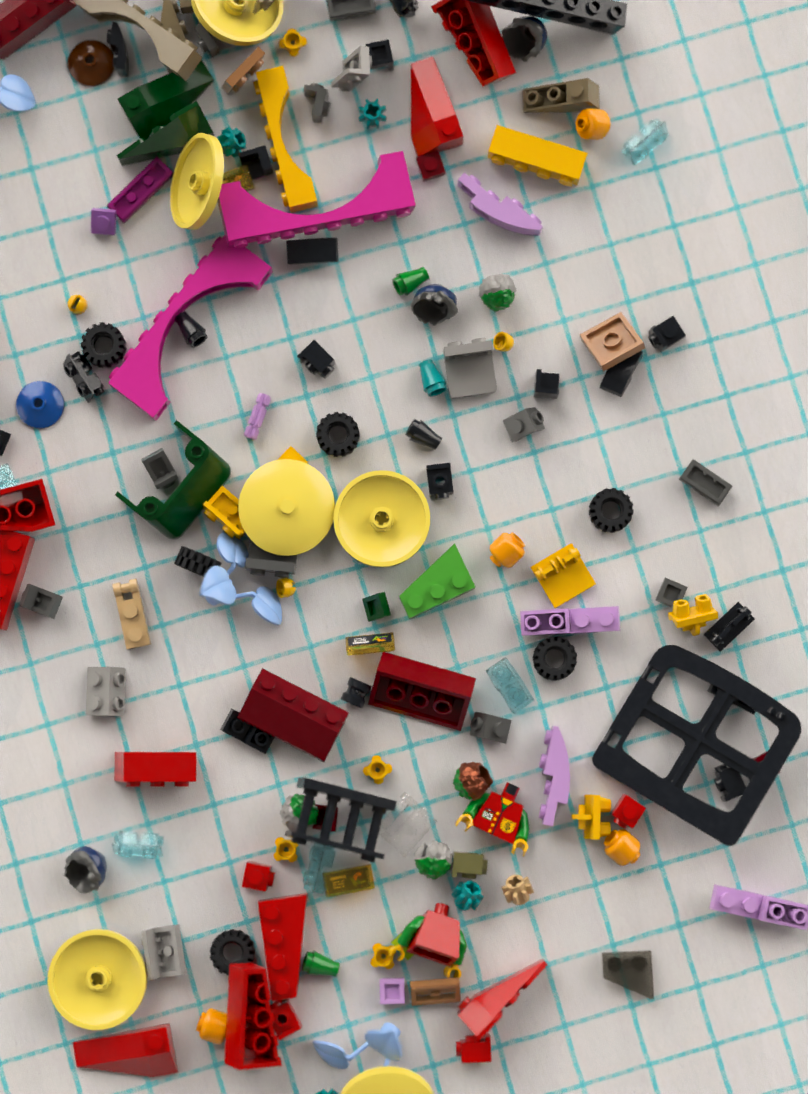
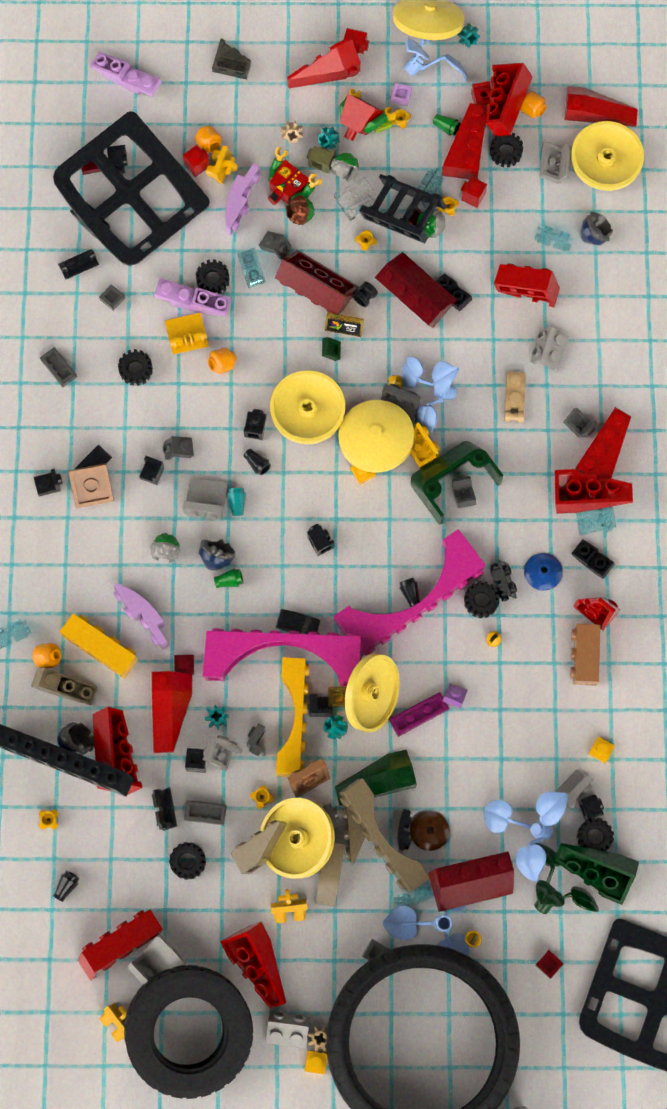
camera: 165 degrees left, 10 degrees down
(168, 139) = (374, 744): dark green wedge -> none
(195, 561) = (454, 414): black tyre -> none
(257, 416) = (378, 512): lavender axle -> none
(337, 420) = (321, 491): black tyre -> none
(348, 880) = (410, 172): clear yellow tile -> none
(435, 988) = (371, 85): medium nougat tile -> none
(438, 584) = (281, 349): bright green wedge -> none
(503, 342) = (173, 512): yellow hinge -> none
(693, 617) = (101, 276): yellow hips -> none

